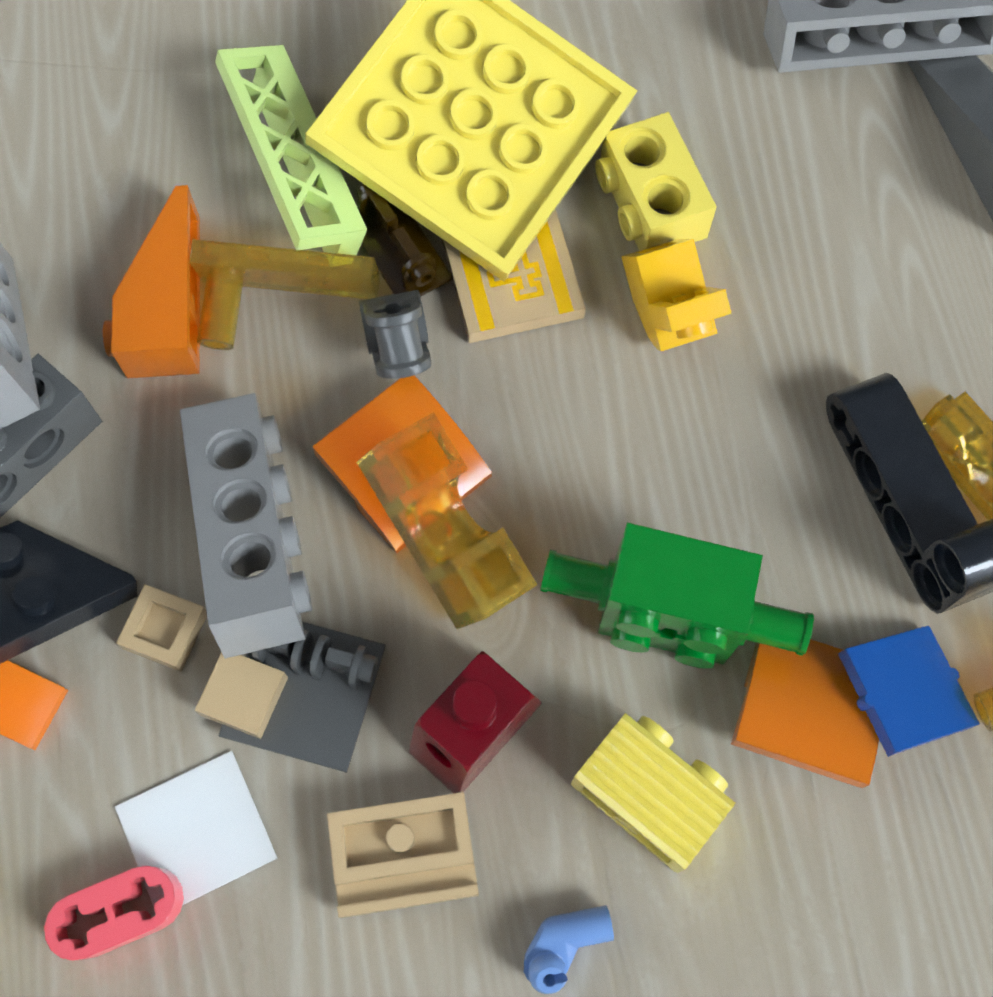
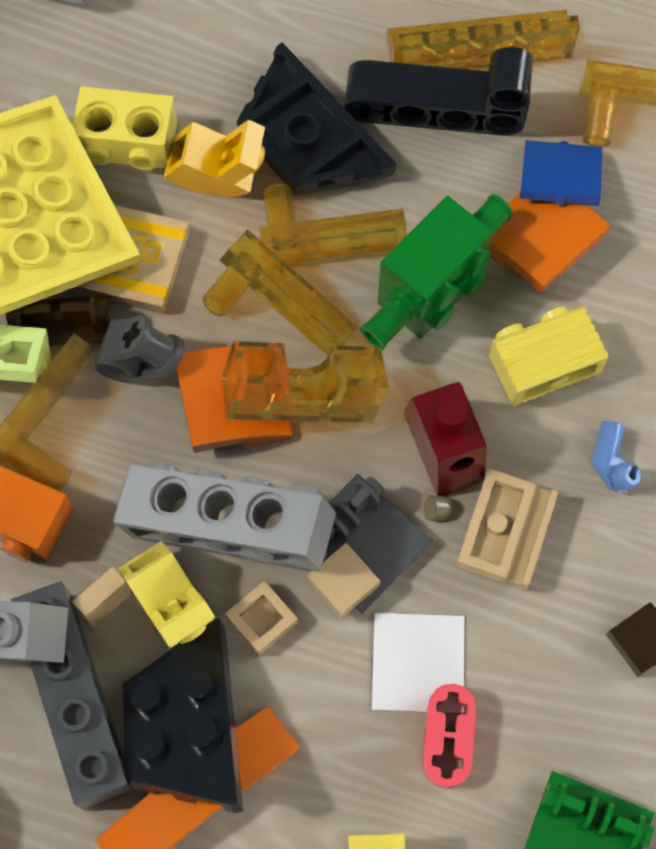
camera: 60 degrees left, 0 degrees up
(101, 448) = (102, 597): none -> tan tile
(130, 515) = (167, 595): none -> light yellow brick
(393, 760) = (438, 508): none -> dark tan piece
(550, 445) = (258, 267): none -> clear yellow piece
(625, 431) = (330, 237): none -> clear yellow piece
(775, 373) = (309, 133): none -> black wing

